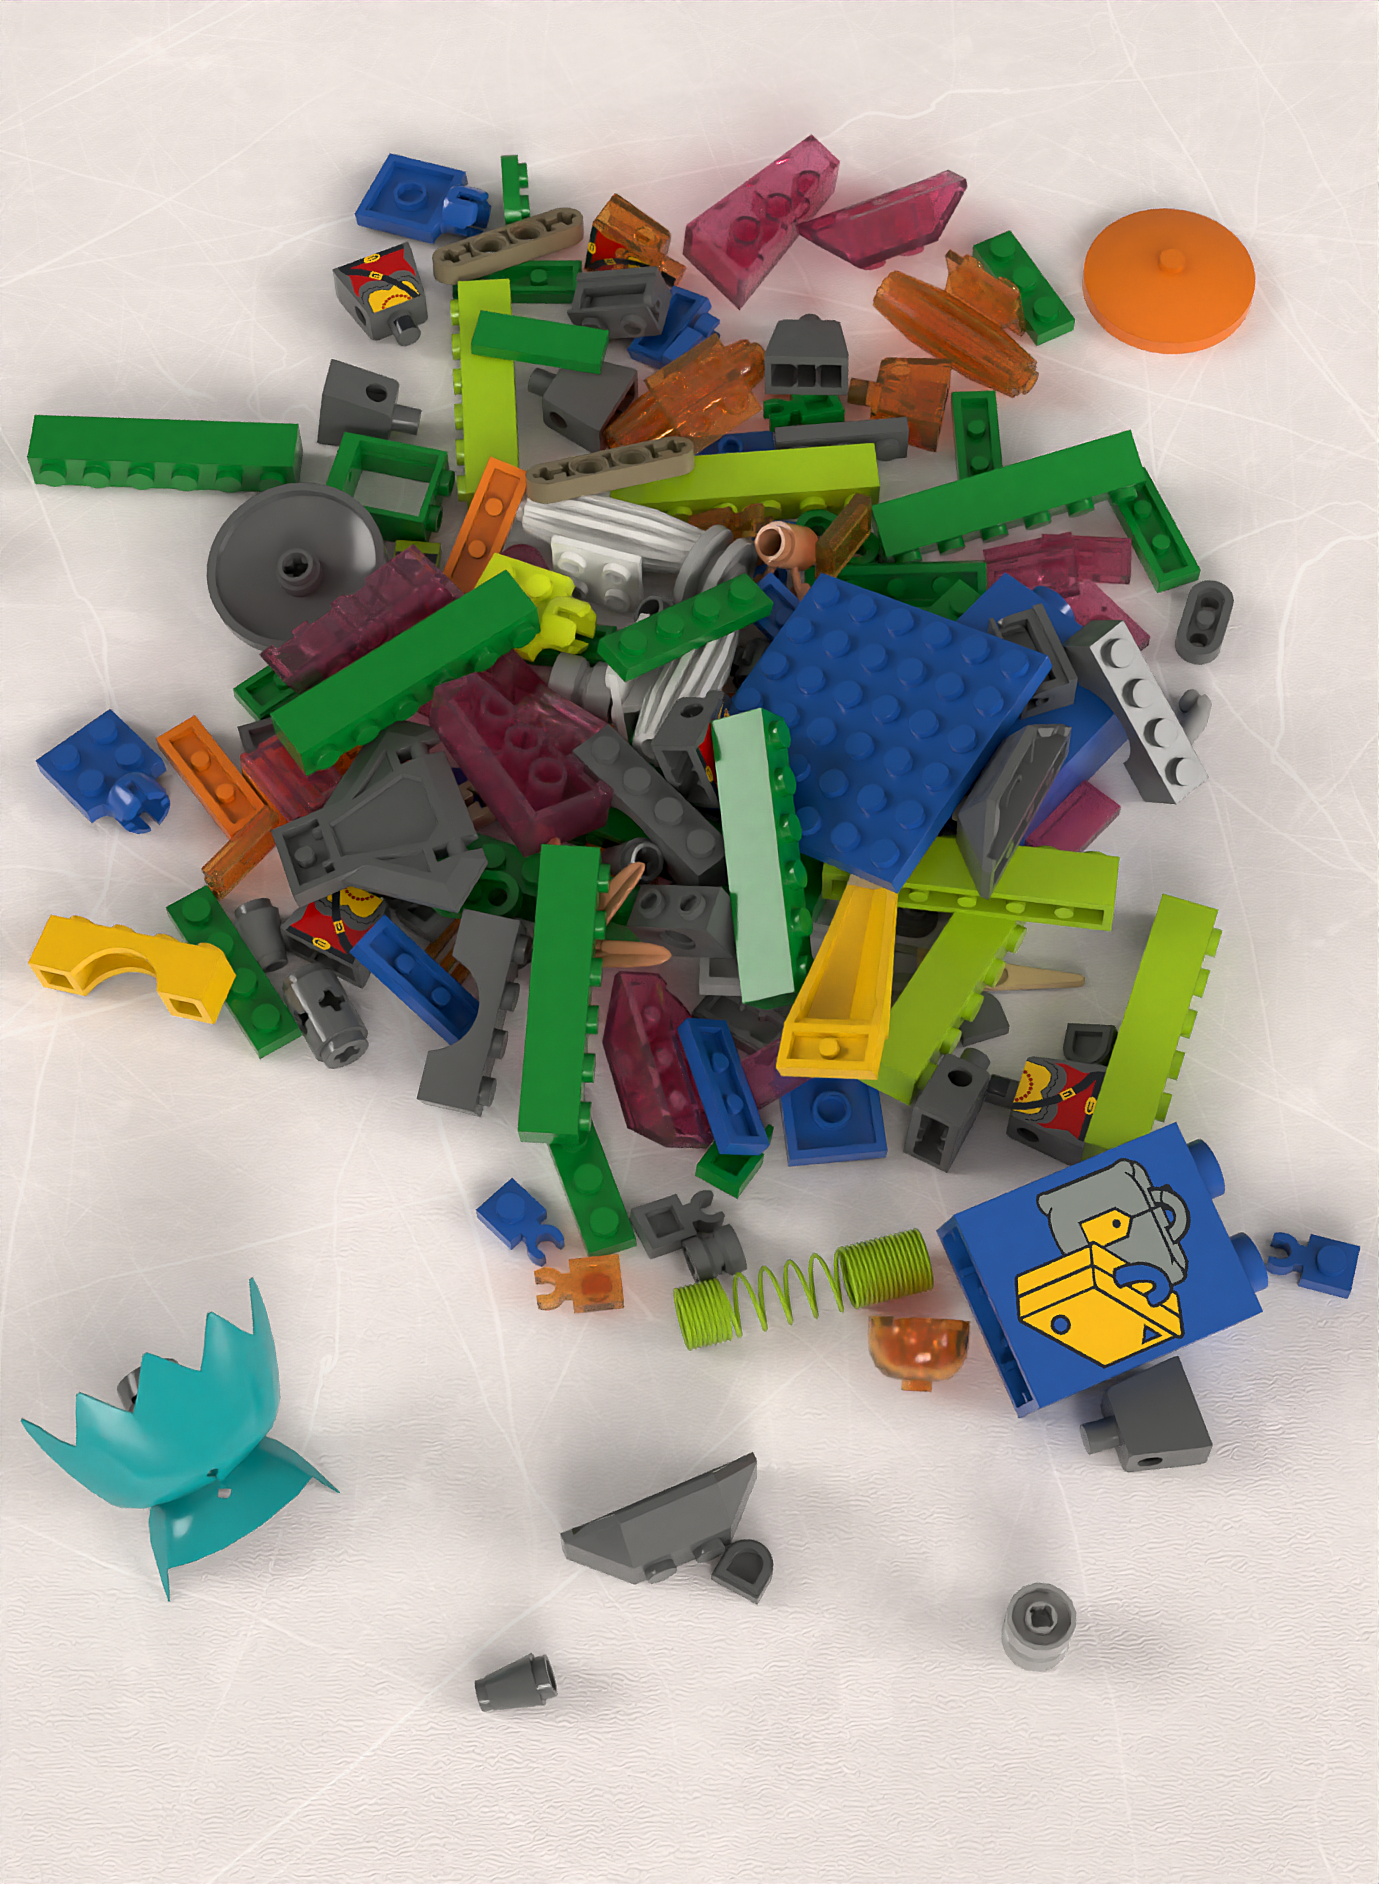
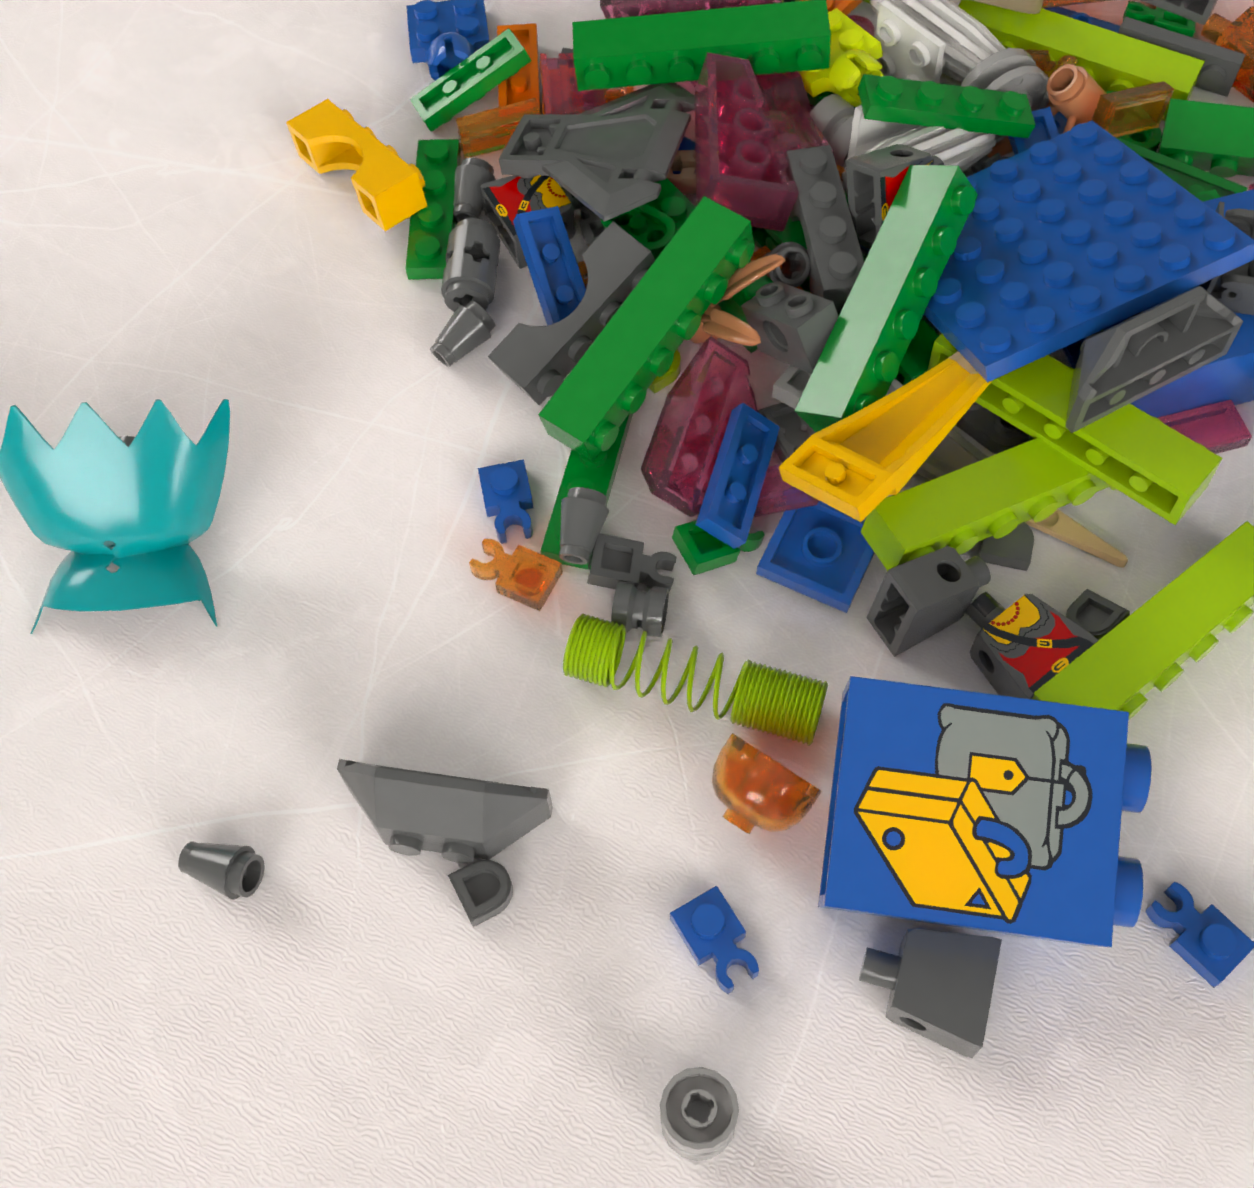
camera: 35 degrees right, 0 degrees up
(178, 816) = (470, 80): none -> green plate
(364, 1086) = (463, 333): none -> dark grey cone
(618, 1209) = (581, 523): none -> dark grey cone
(951, 1487) = (712, 931): none -> blue plate

